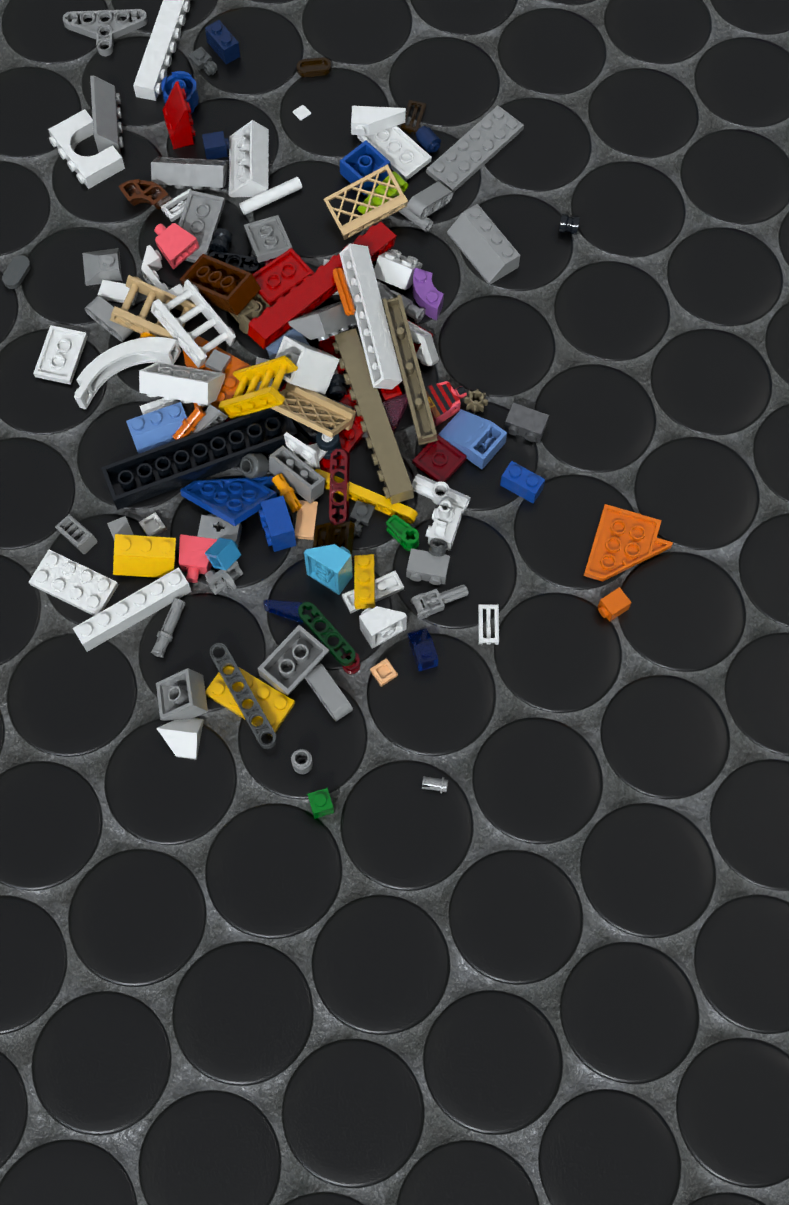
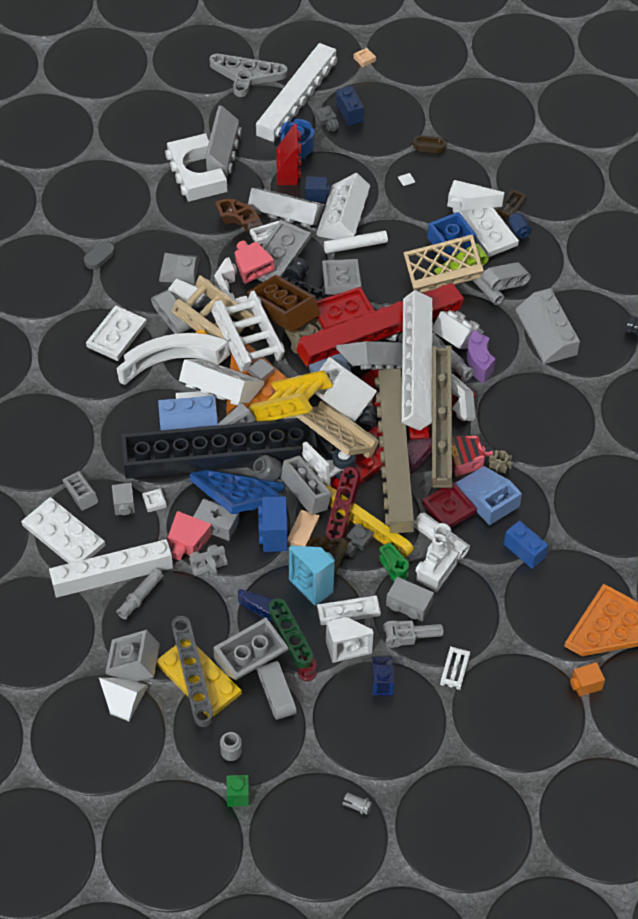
camera: 15 degrees right, 15 degrees down
(143, 555) = (136, 520): yellow slope -> none
(189, 424) = (217, 416): orange pin -> none
(223, 553) = (212, 537): dark azure brick -> none
(287, 491) = (291, 499): light orange pin -> none
(344, 291) = (398, 337): orange axle -> none
(364, 581) = (343, 596): yellow plate -> none
(383, 672) = (337, 686): light nougat tile -> none
(437, 547) = (423, 581): dark grey bush -> none
(475, 149) = (563, 243): light grey plate -> none
(526, 423) = (545, 492): flat silver brick -> none

